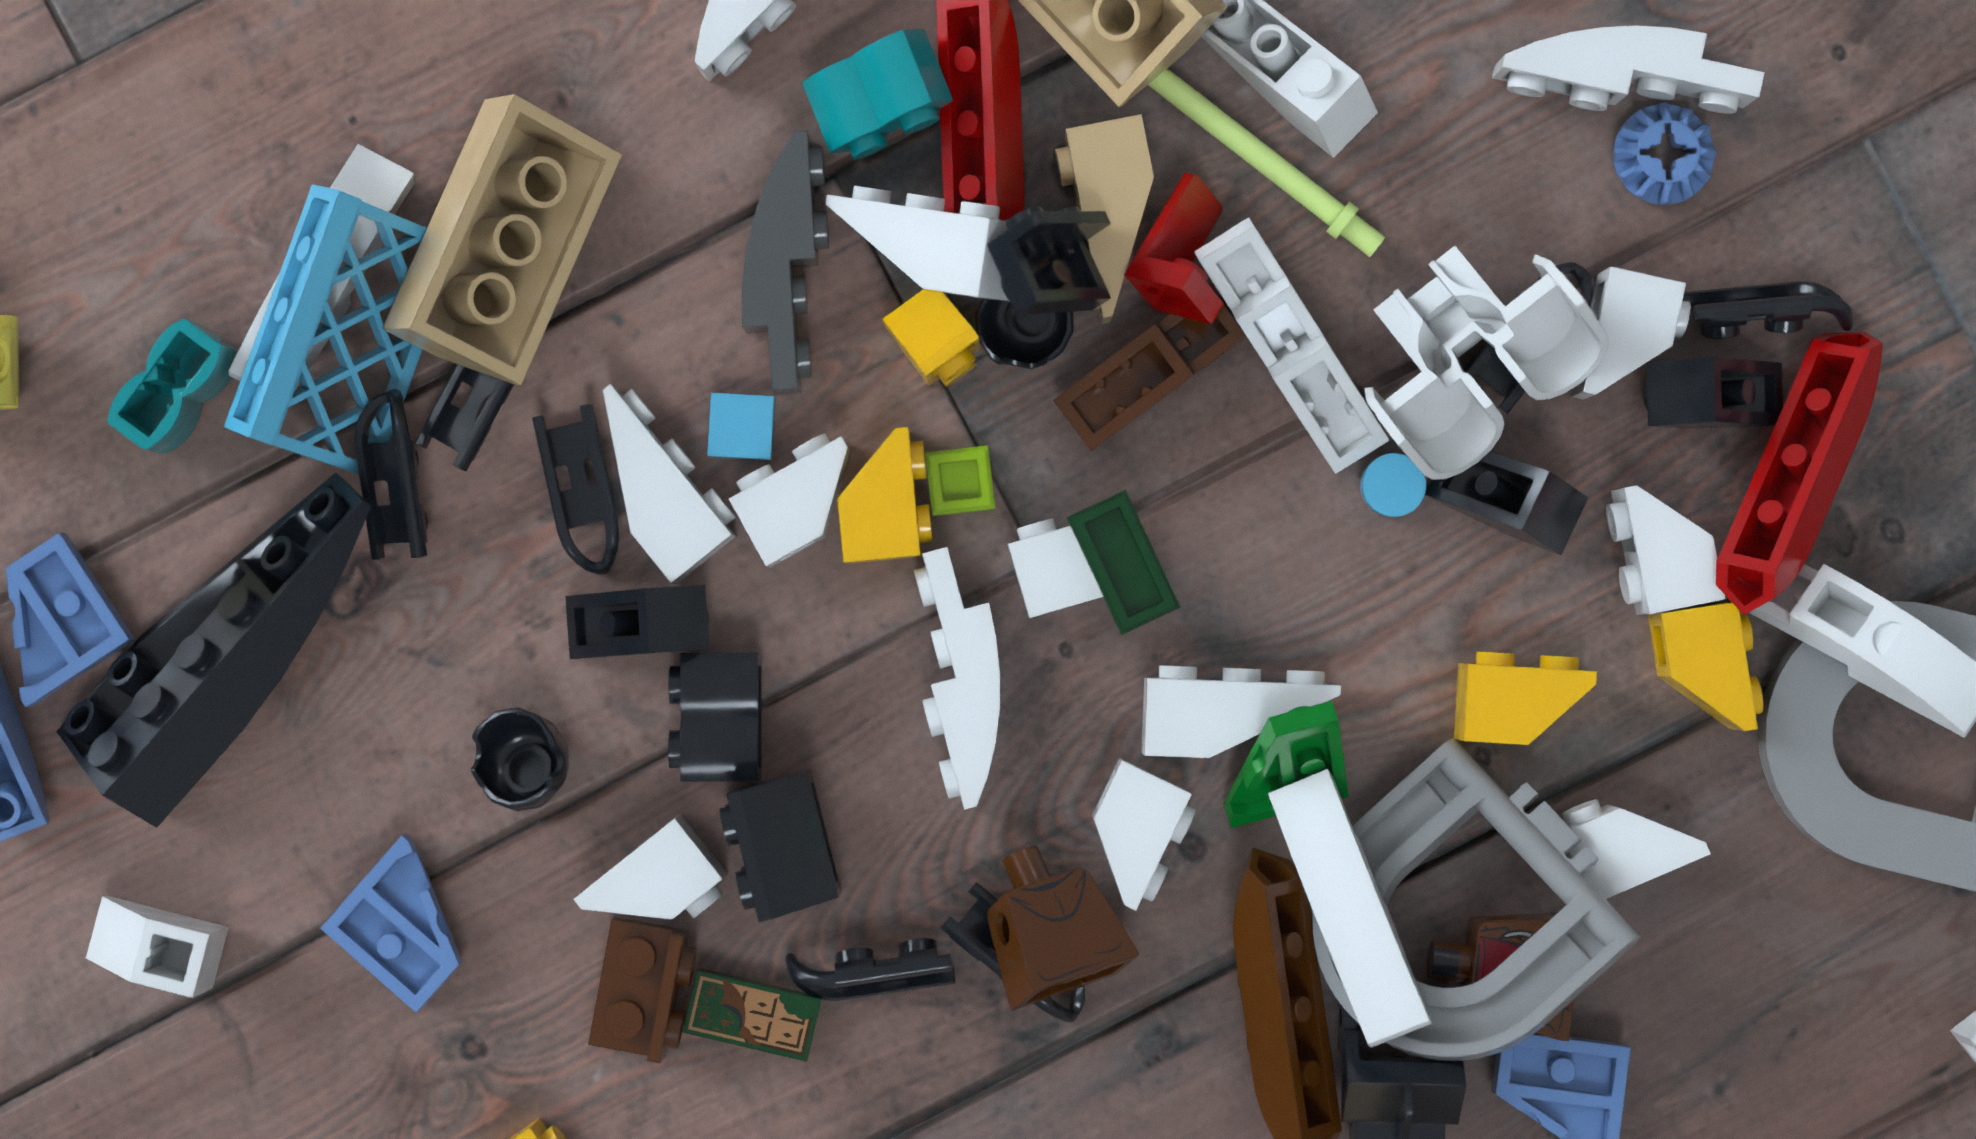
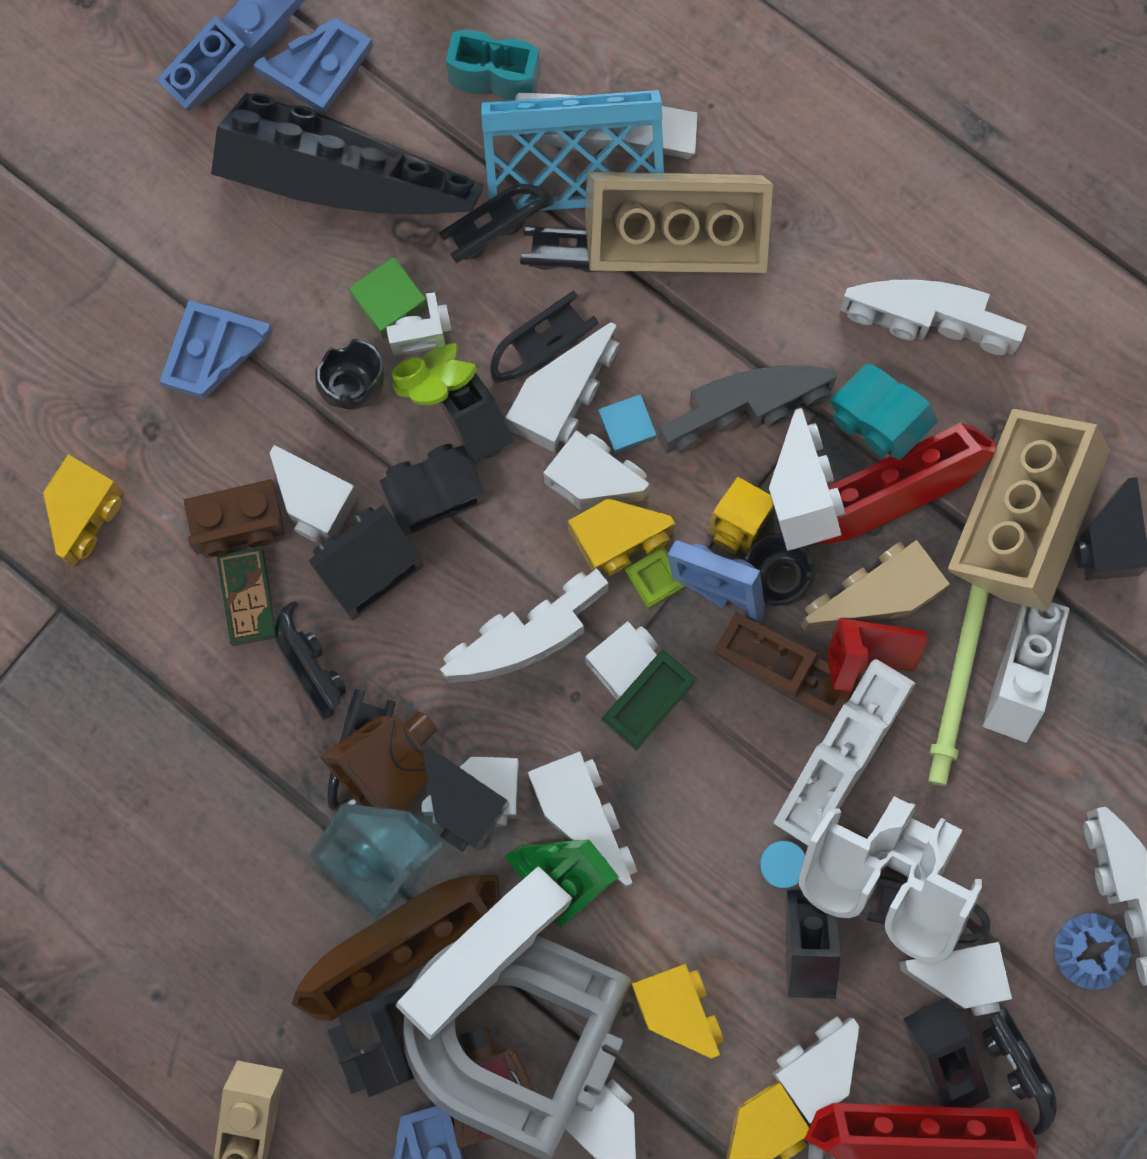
camera: 70 degrees right, 10 degrees down
(156, 947) = (135, 208): white slope -> none
(431, 663) = (387, 296): none -> bright green piece
(500, 650) = (417, 335): none -> white bracket
(567, 652) = (430, 377): none -> lime plate
(1004, 404) = (718, 578): none -> medium blue wing
(1048, 262) = (825, 561): black bracket -> none
(1152, 858) = (461, 803): none -> black slope
(1167, 990) = (376, 854): none -> clear light blue slope

